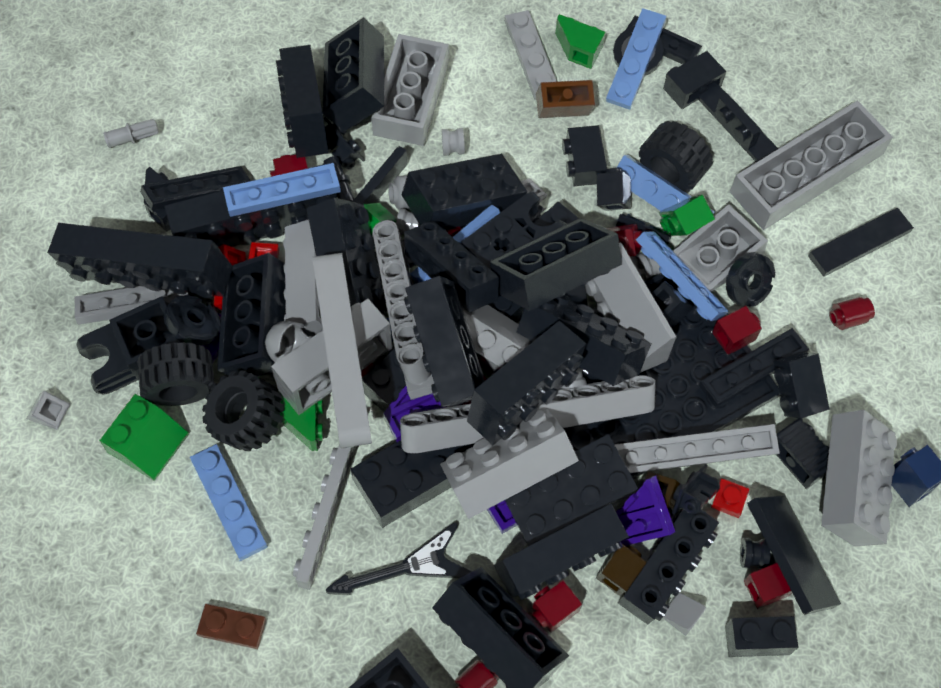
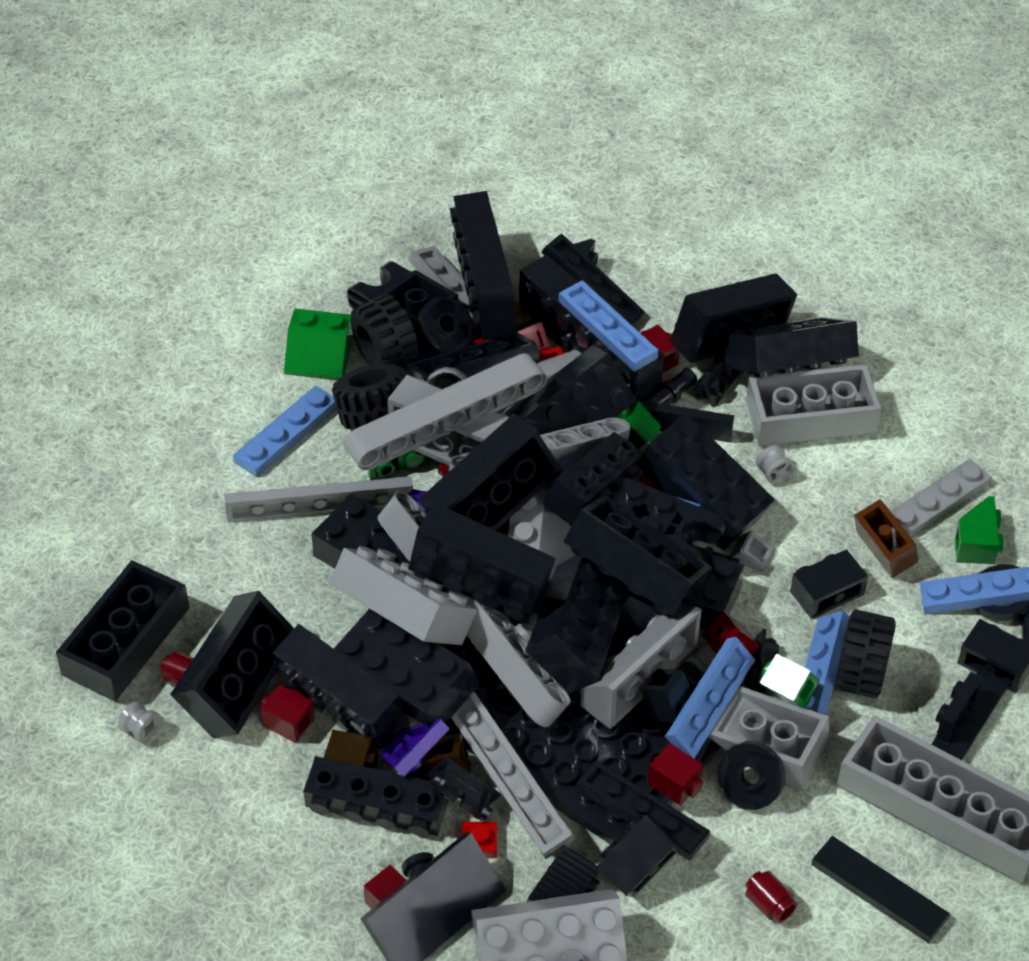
camera: 70 degrees right, 15 degrees down
(48, 410) = (316, 275): light grey slope -> none
(130, 133) = (631, 219): light grey axle -> none
(231, 626) = (167, 475): copper plate -> none
(425, 562) = (291, 598): piece -> none
(613, 190) = (794, 616): black brick -> none
(683, 613) = (328, 832): light grey slope -> none
(761, 636) = (328, 901): black brick -> none

